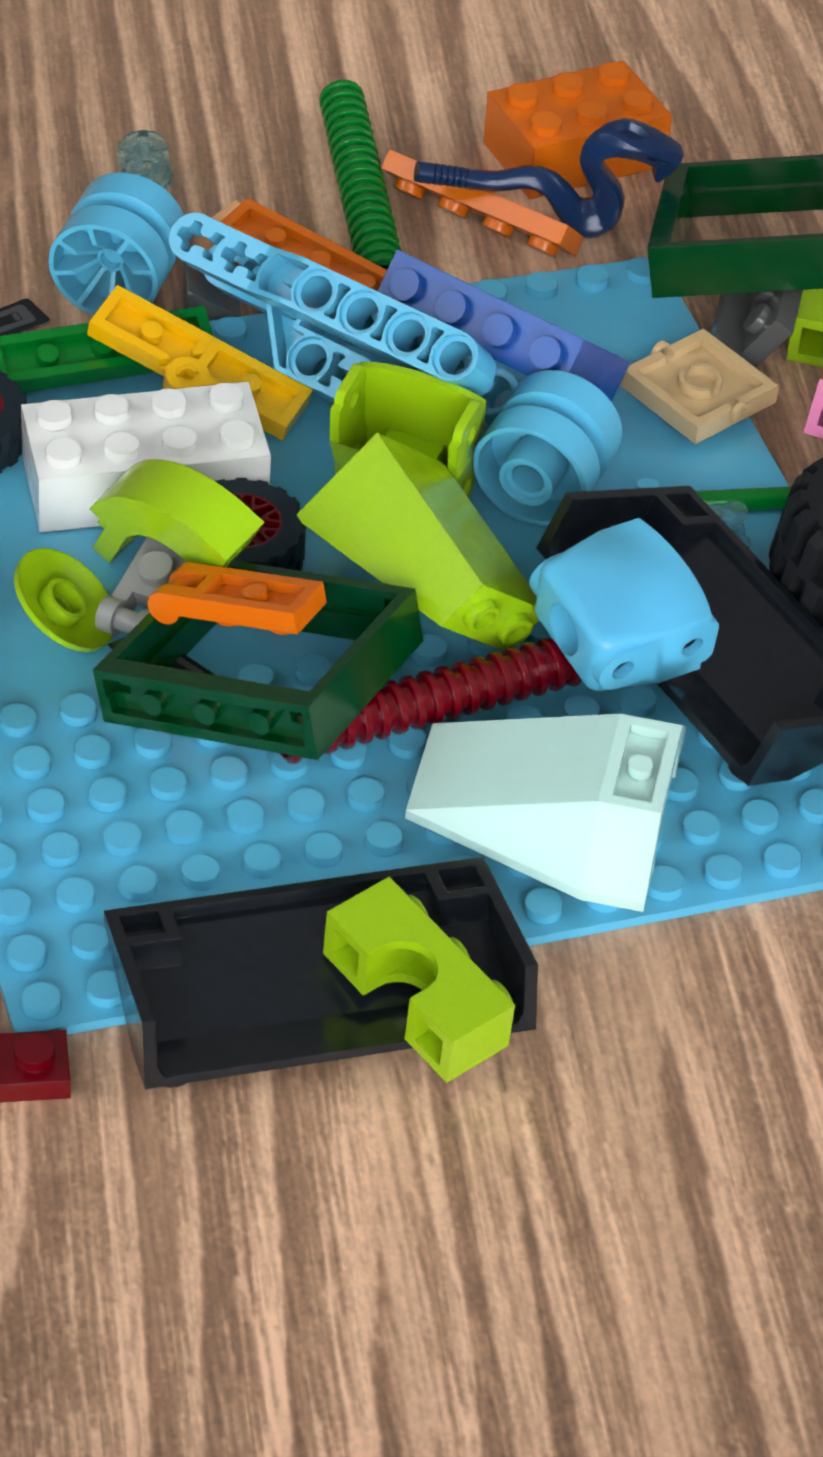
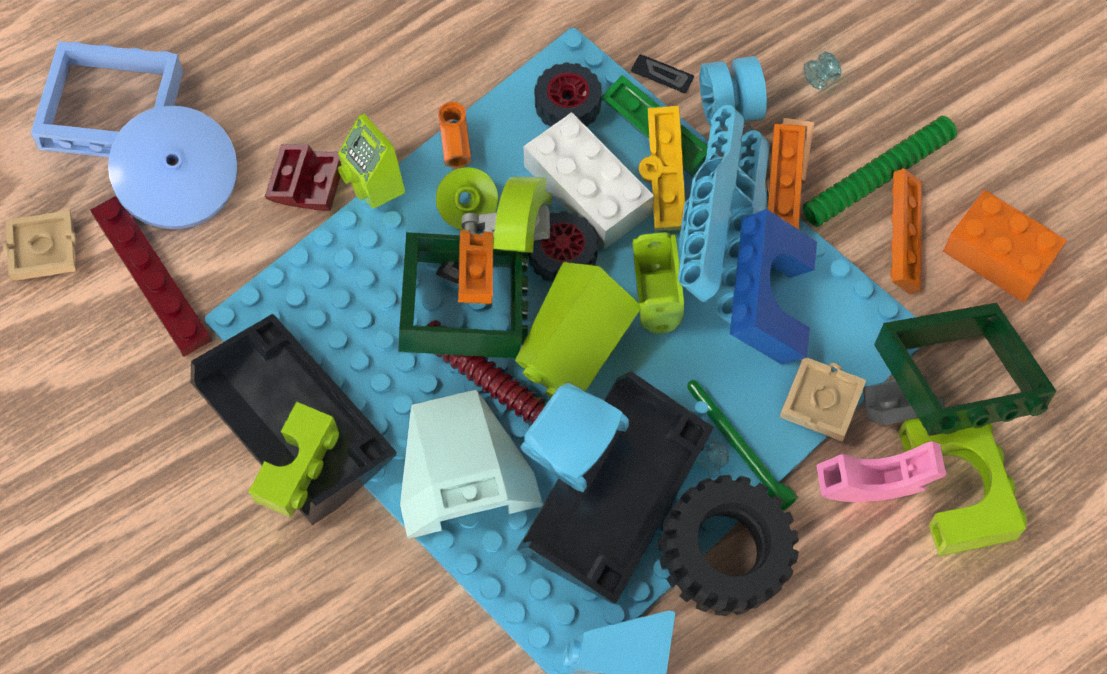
camera: 65 degrees right, 20 degrees up
(546, 442) = (708, 348): medium azure wheel -> none
(587, 215) = (940, 278): dark blue animal -> none

